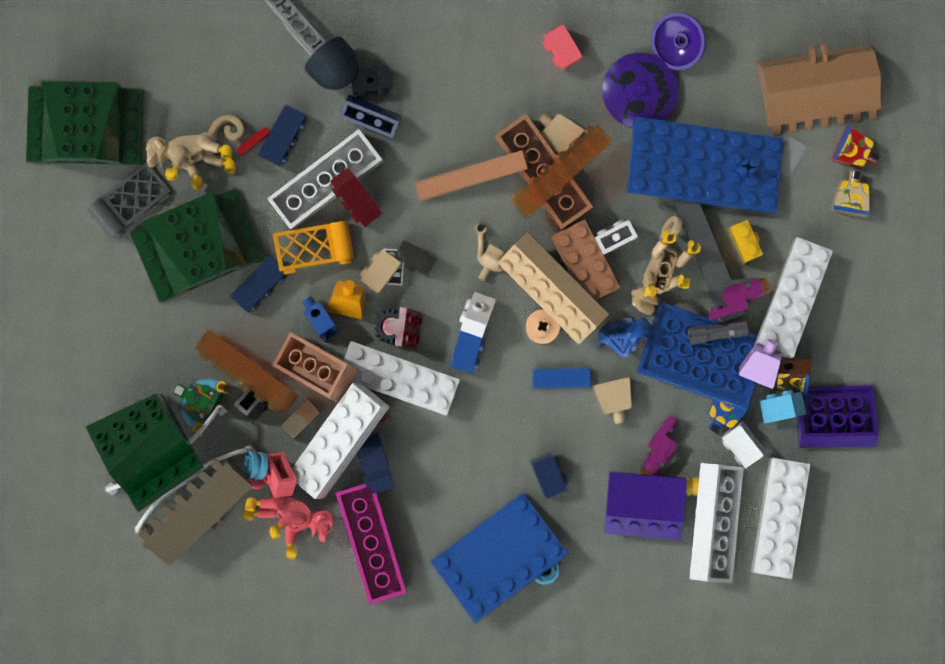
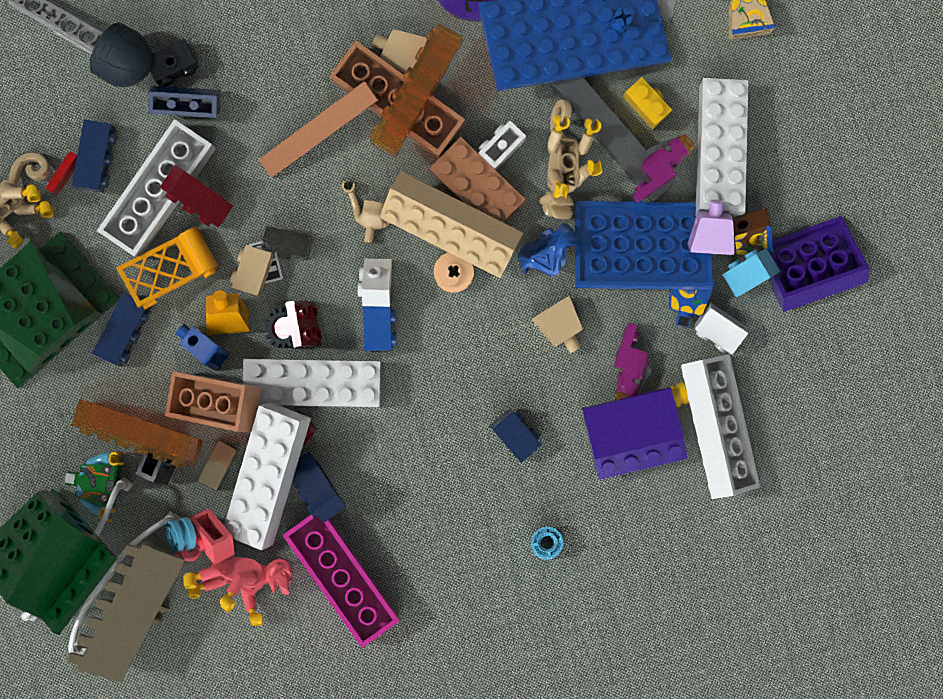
camera: 20 degrees left, 0 degrees up
(499, 558) = (491, 546): blue plate -> none
(561, 378) = (493, 322): blue tile -> none
(731, 329) = (658, 208): dark grey axle -> none
(780, 518) = (789, 397): white brick -> none

